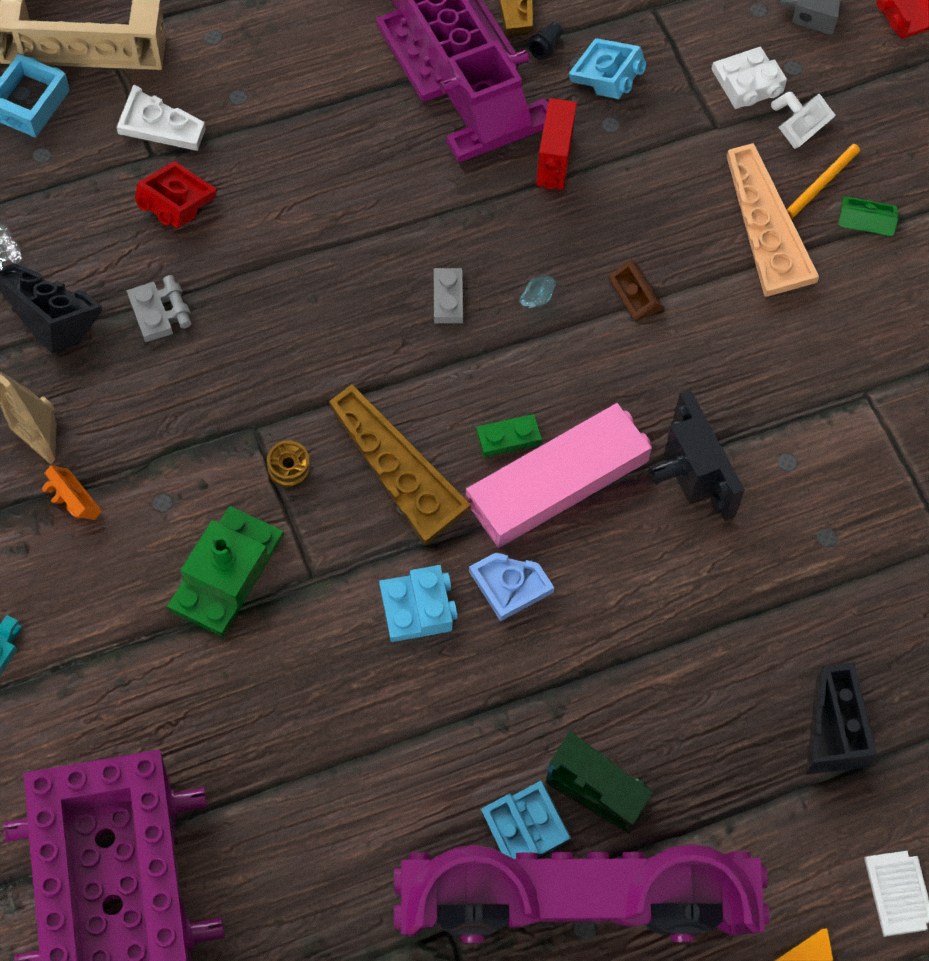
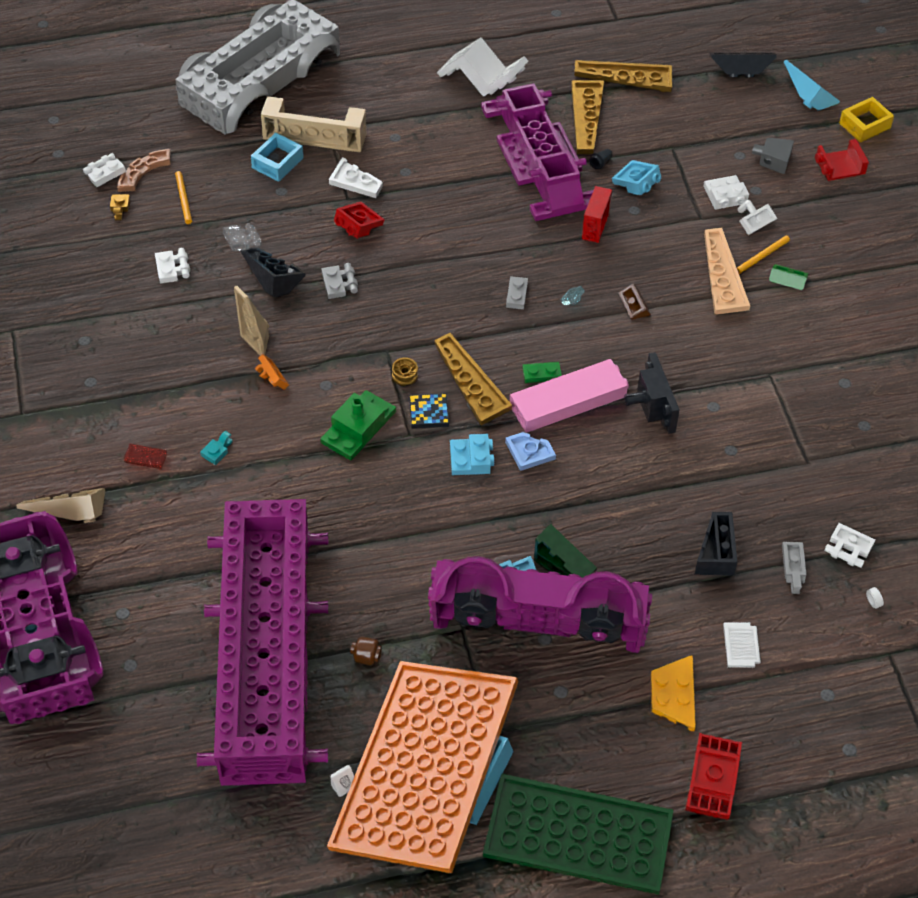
camera: 10 degrees right, 10 degrees down
(337, 530) = (429, 411): none -> tile

